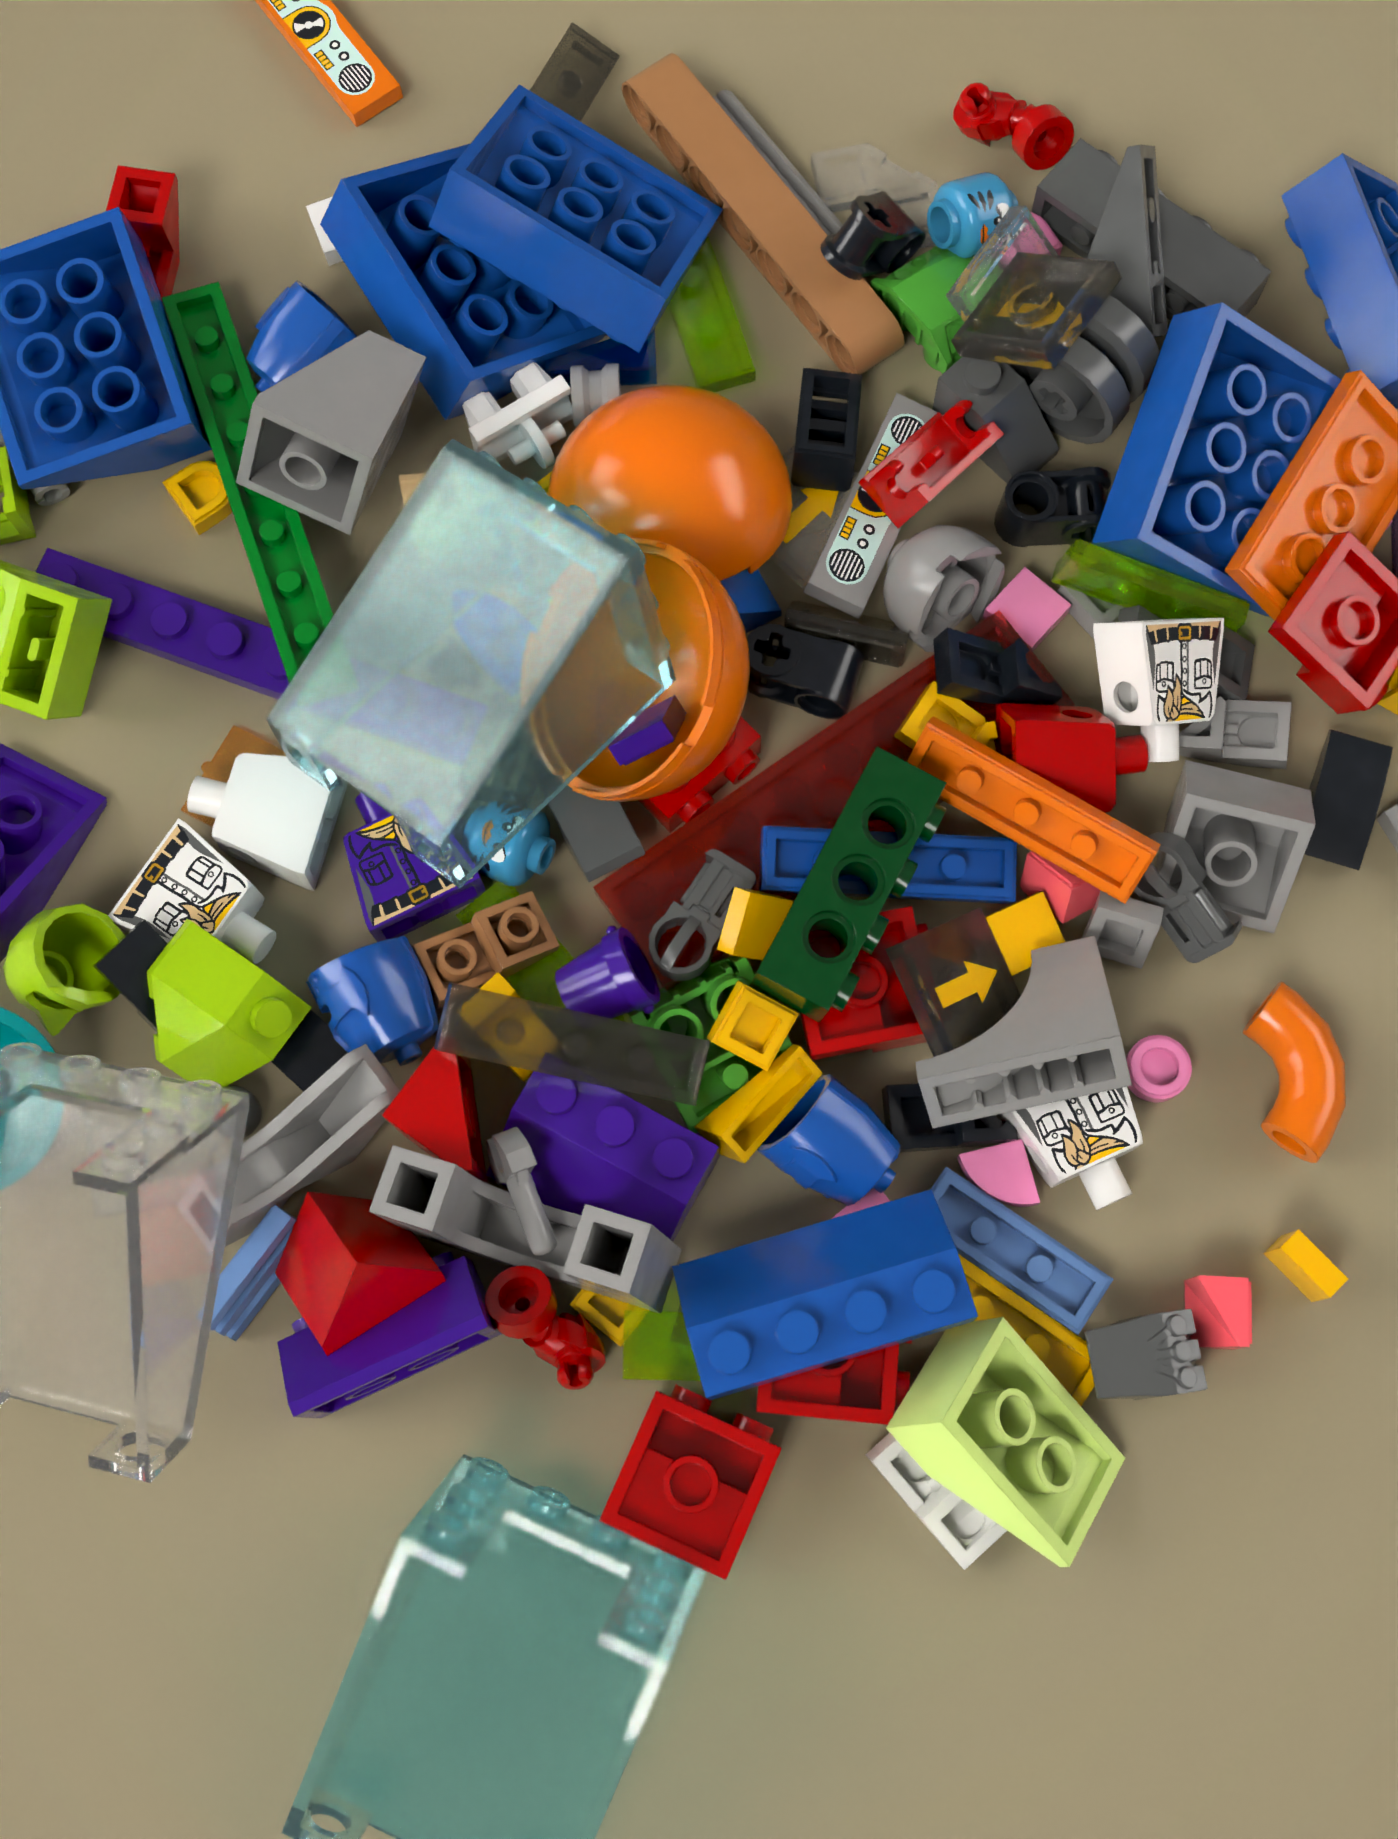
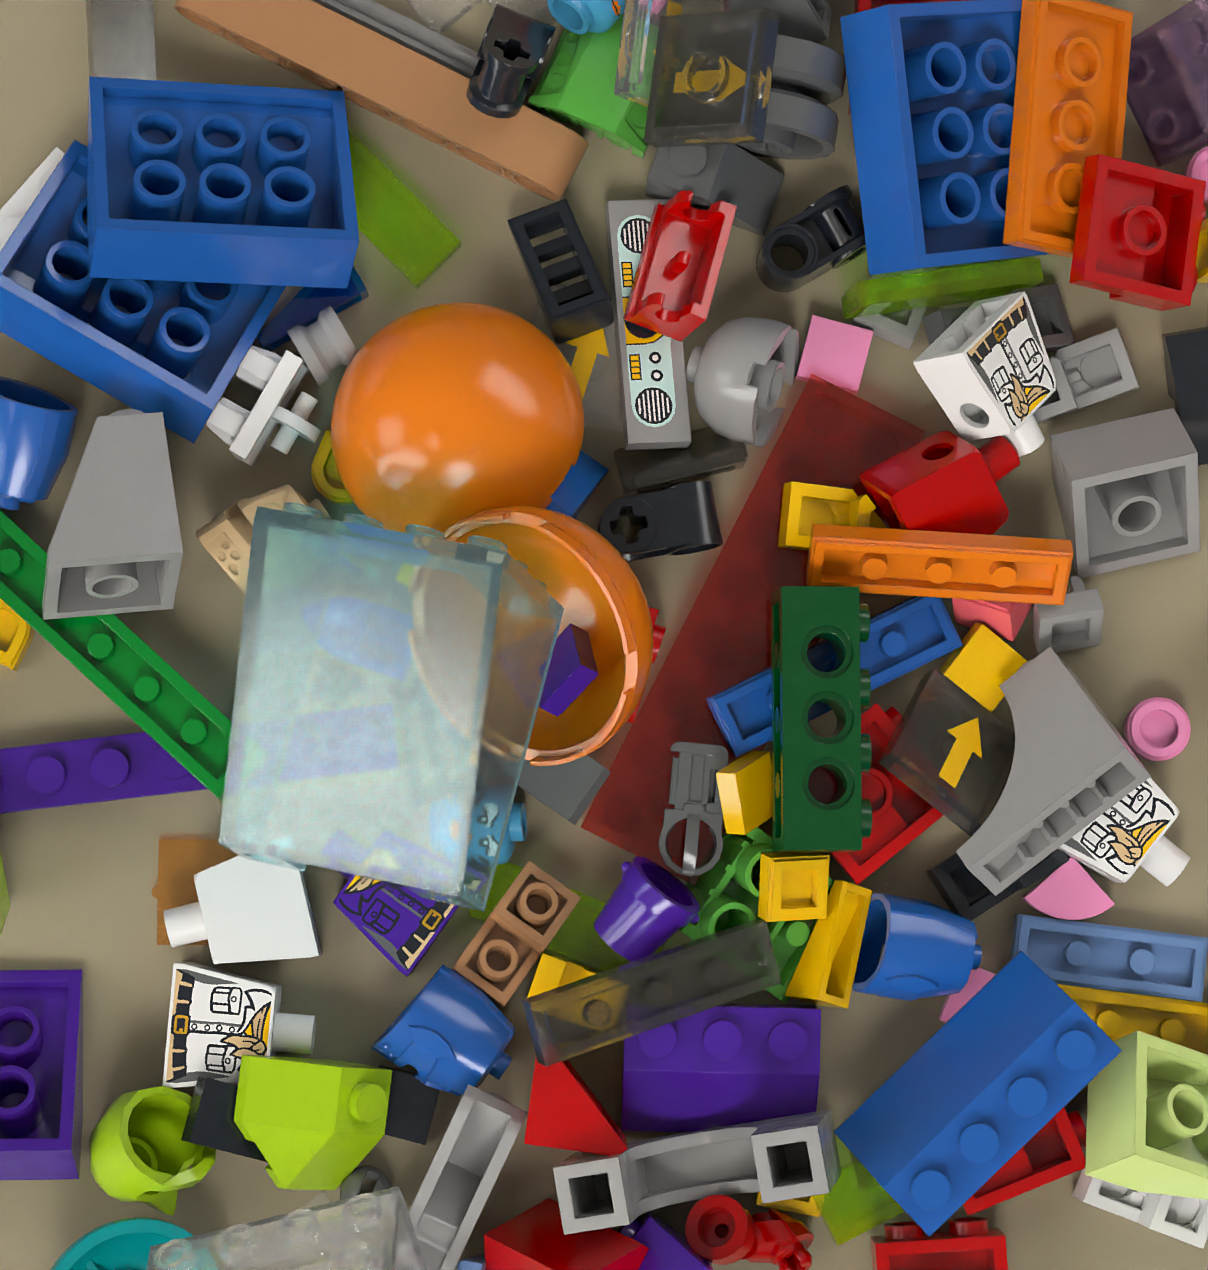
camera: 35 degrees left, 10 degrees up
(512, 1164) = (651, 1117): light grey bar -> none
(986, 673) = (835, 445): black slope -> none
(1189, 911) = (1119, 574): dark grey piece -> none

